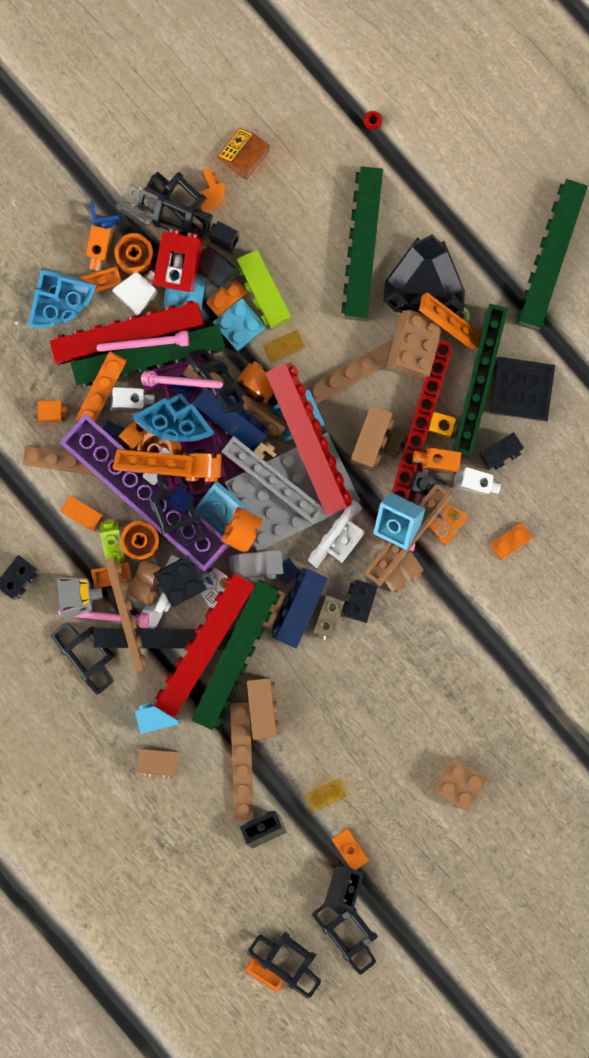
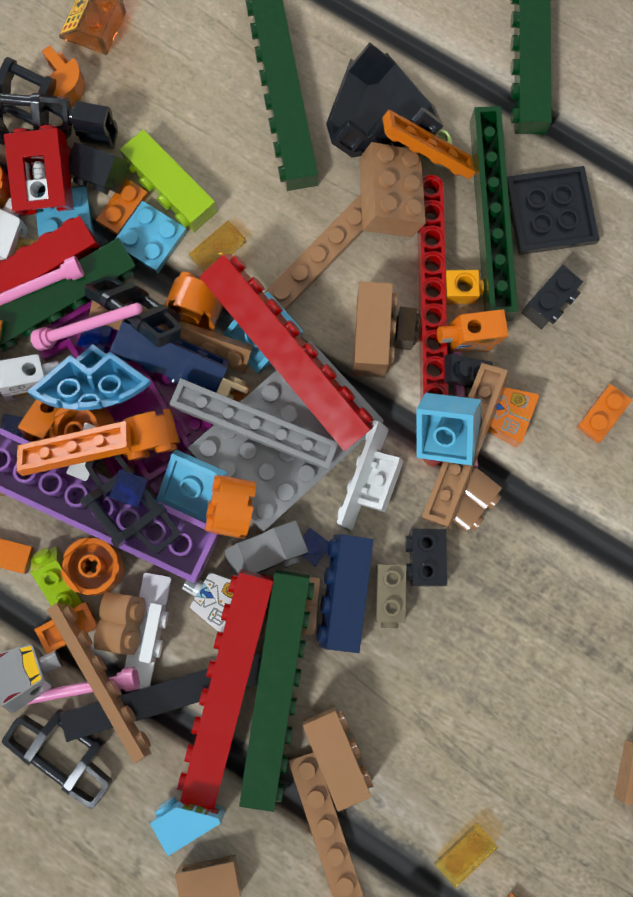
camera: 15 degrees left, 5 degrees down
(180, 581) = (163, 607): black plate -> none
(470, 479) = (531, 347): white torso -> none

